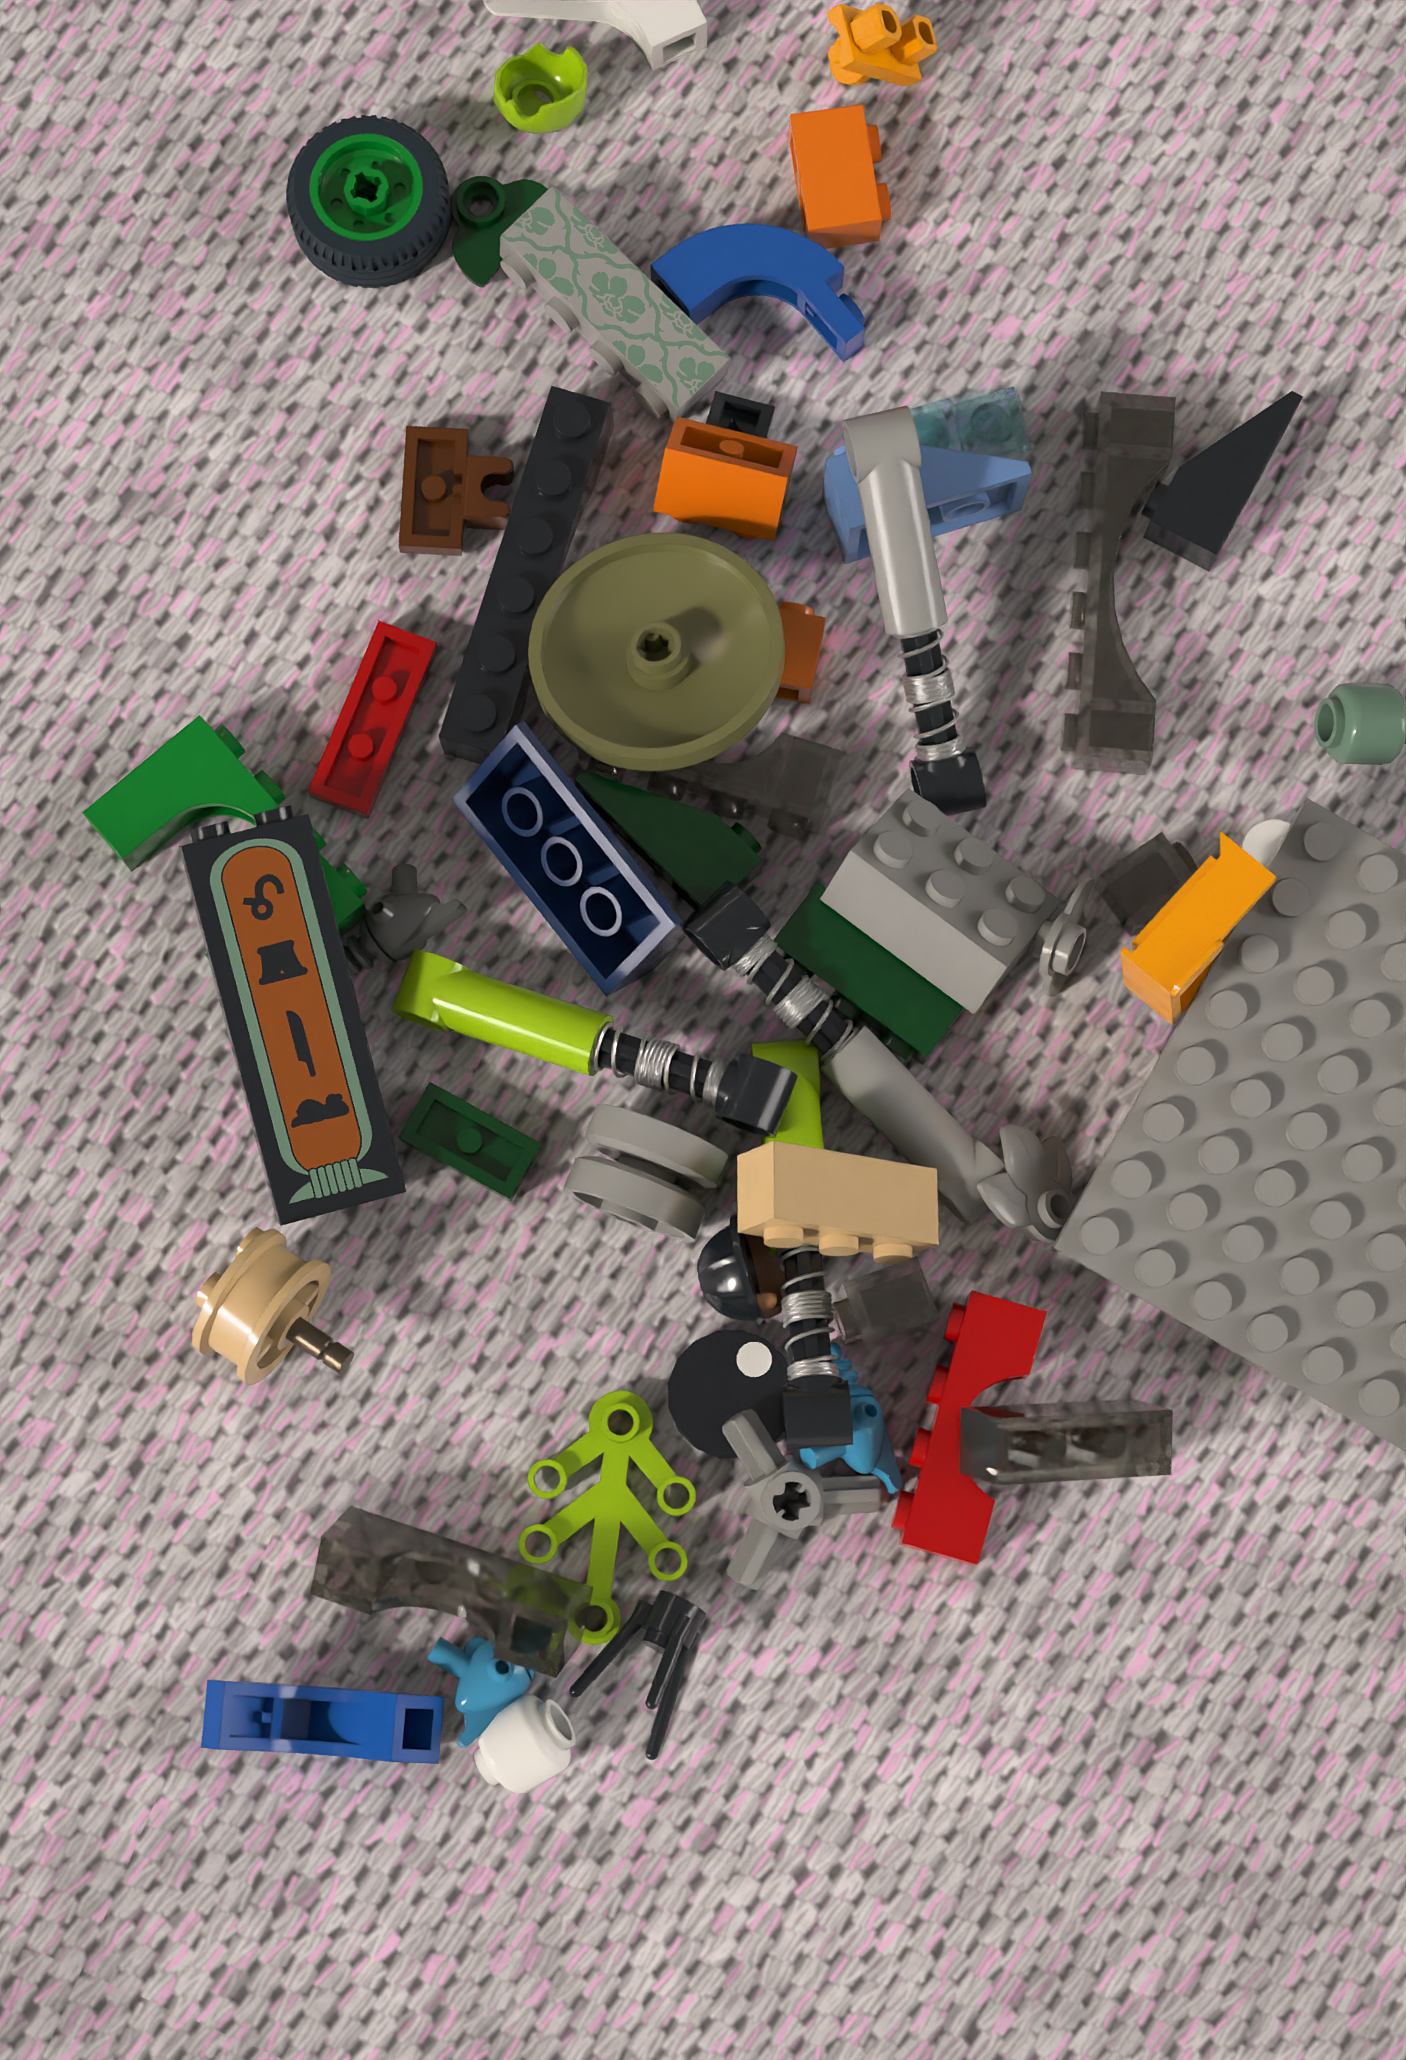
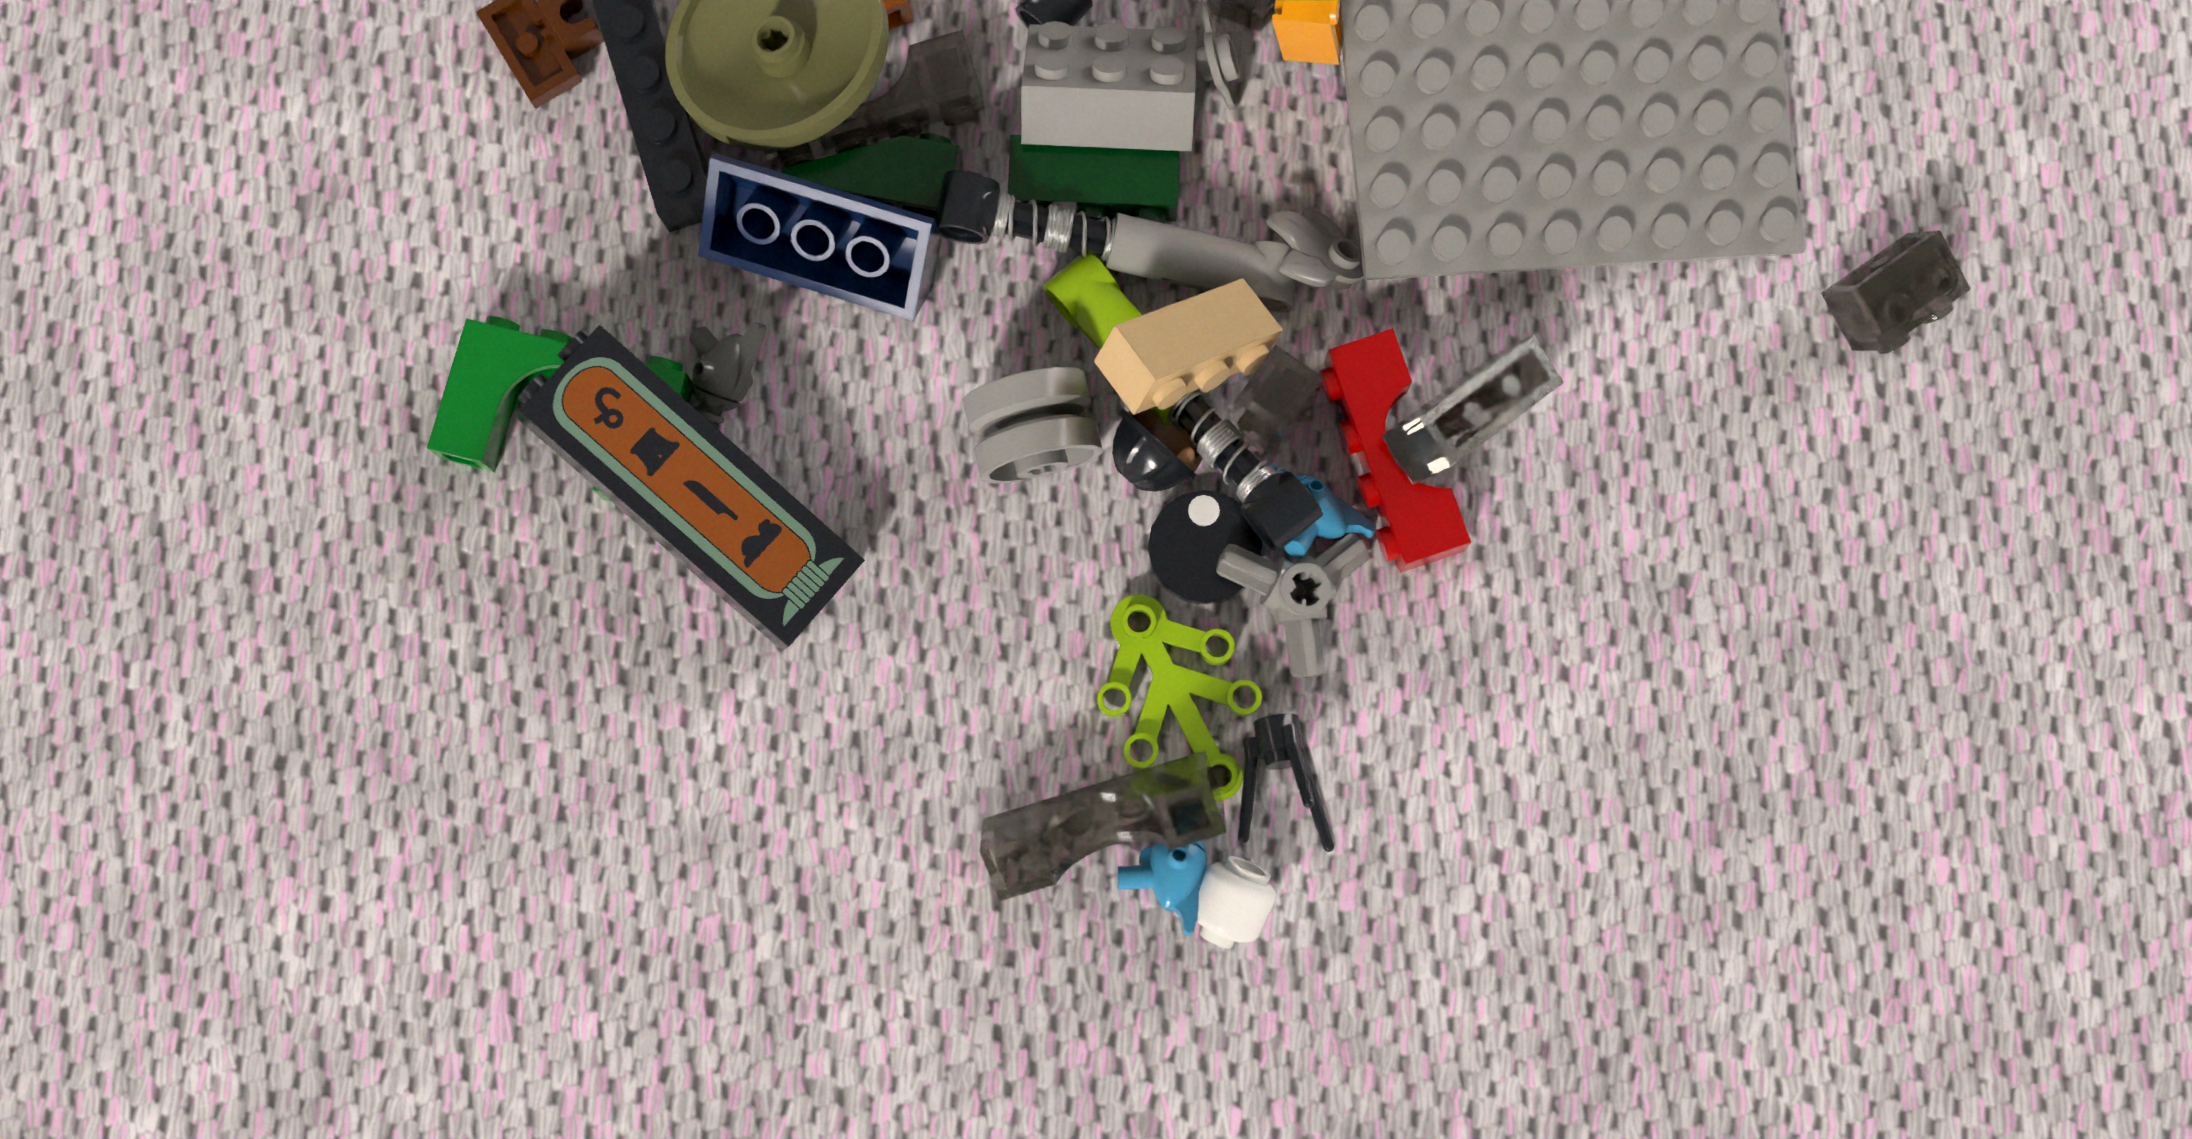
camera: 30 degrees left, 0 degrees up
(265, 1309) = (819, 716): tan wheel -> none
(322, 1721) = (1074, 987): blue arch -> none
(373, 720) = (599, 240): red plate -> none
(453, 998) = (796, 400): piece -> none
(470, 1141) = (885, 495): dark green plate -> none

